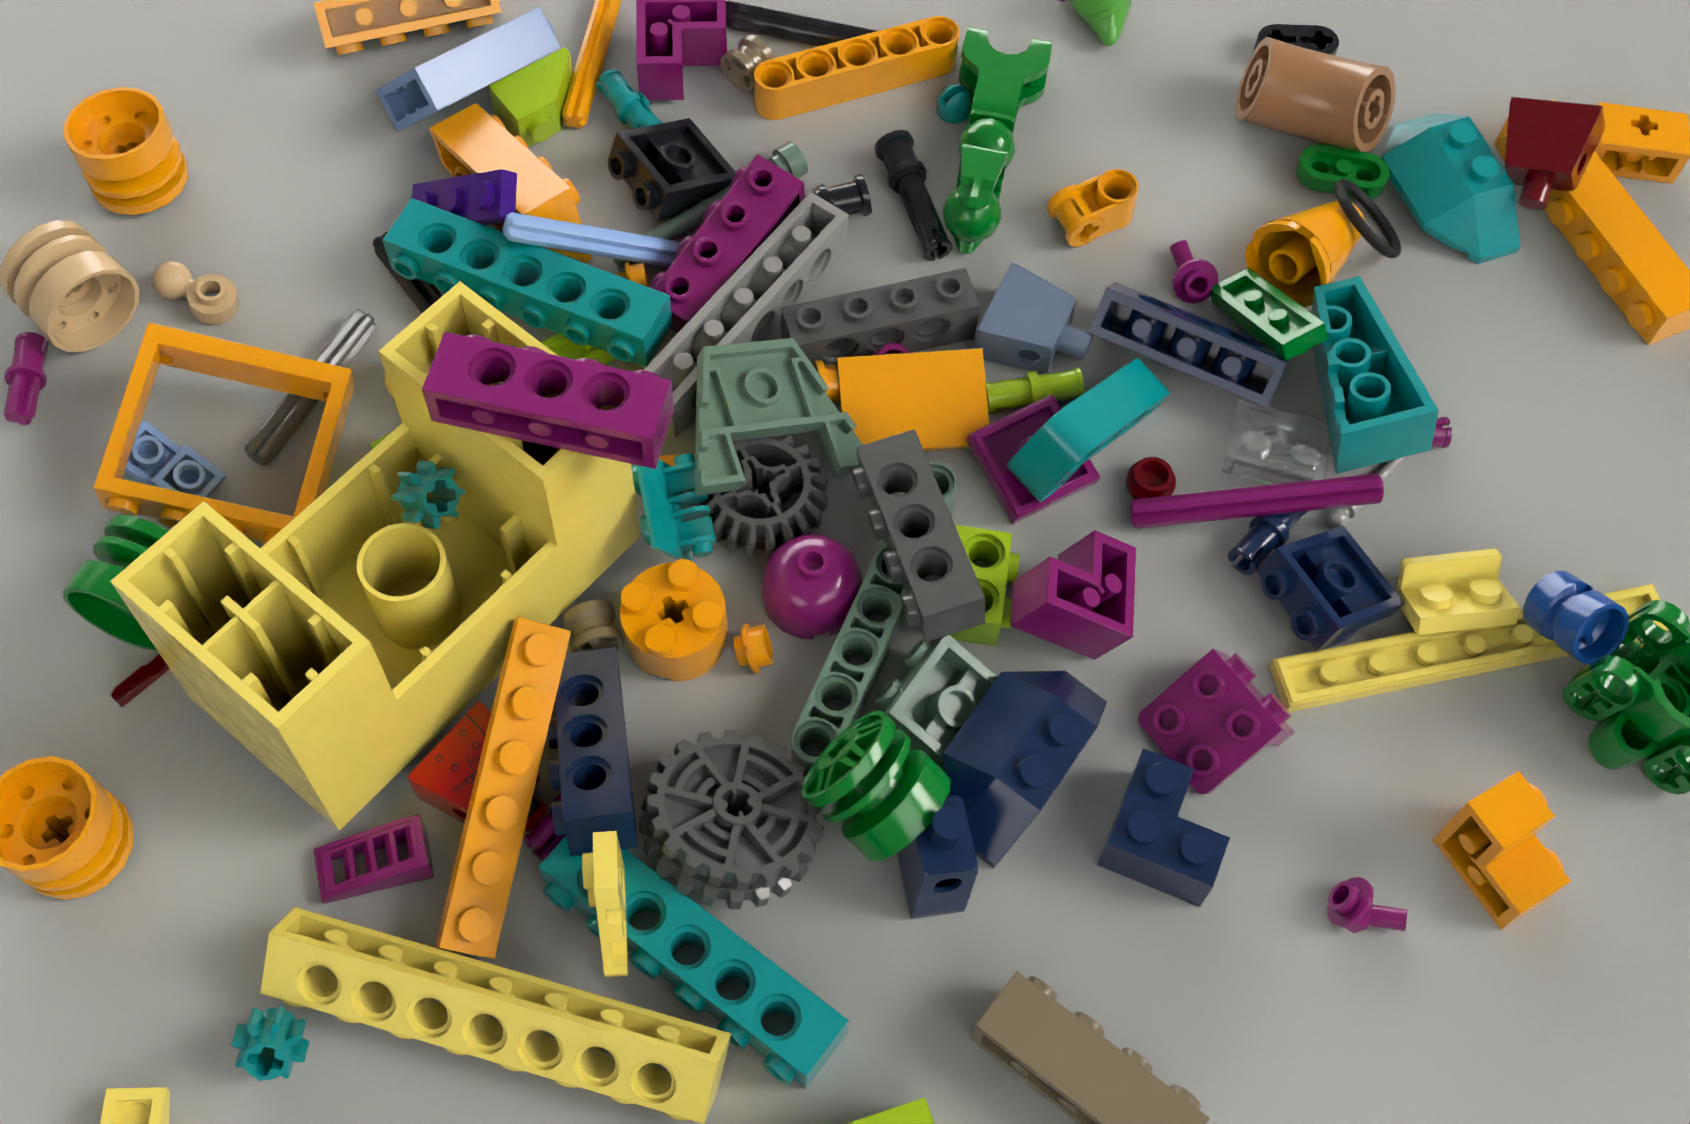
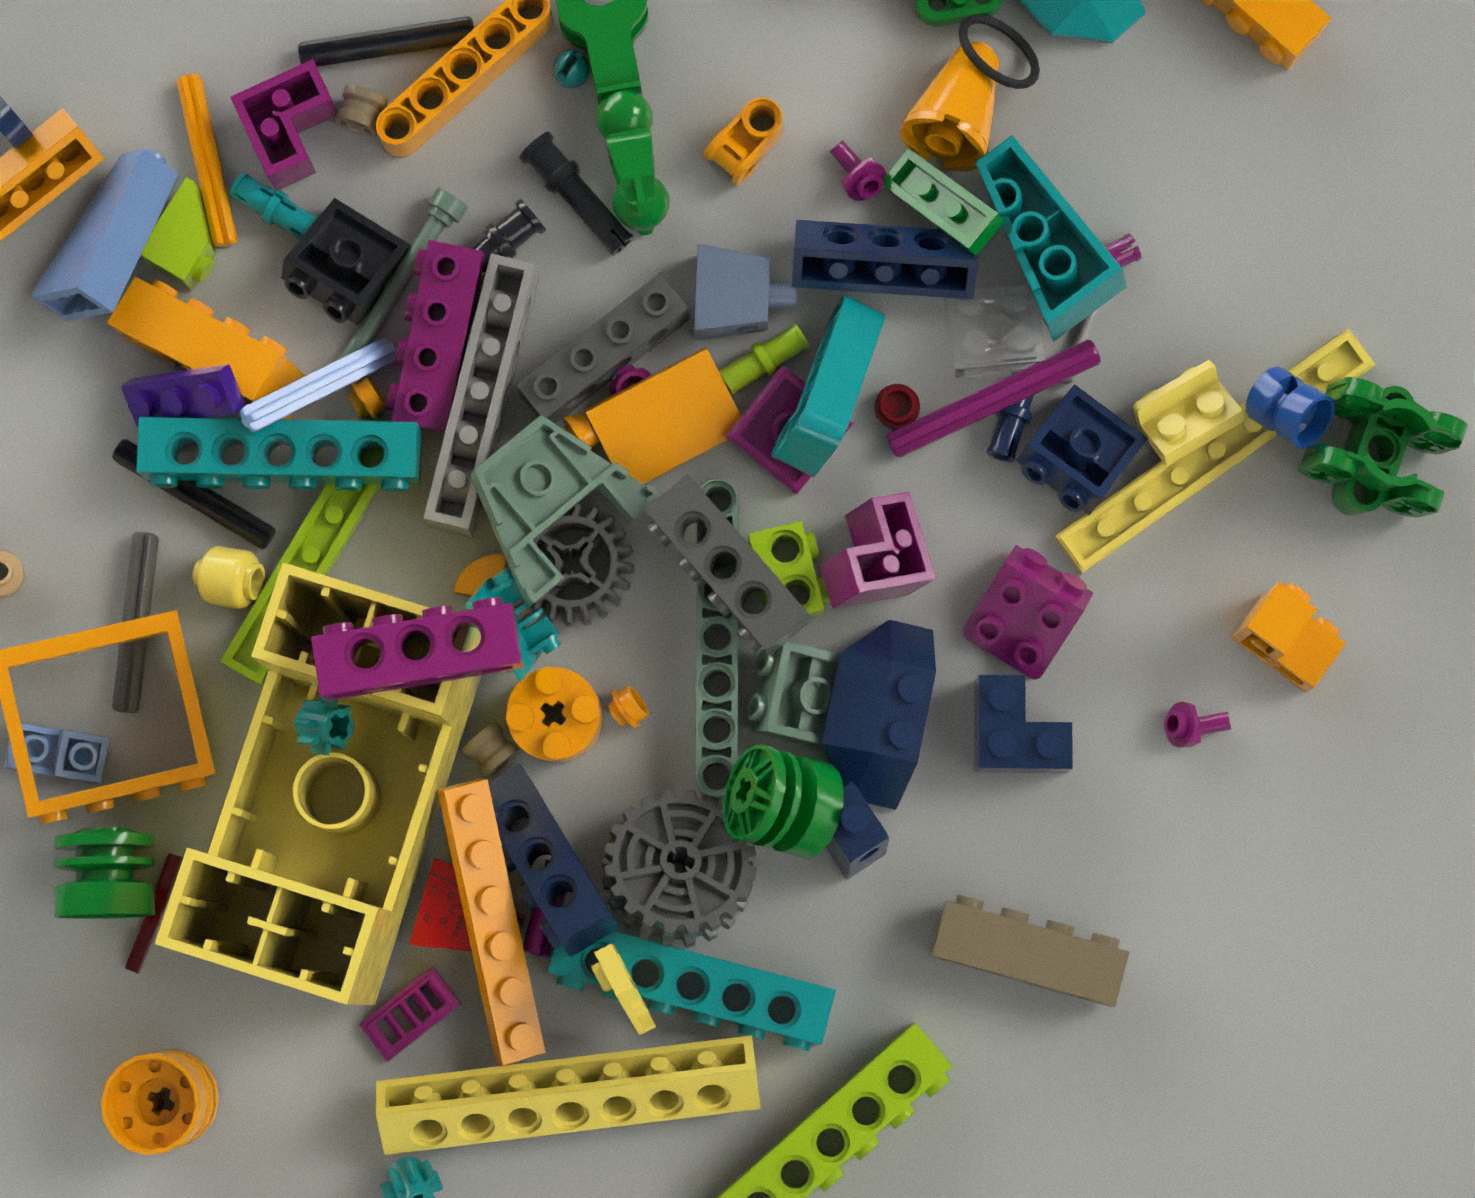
camera: 20 degrees left, 20 degrees up
(810, 586) = (651, 631): magenta cylinder -> none

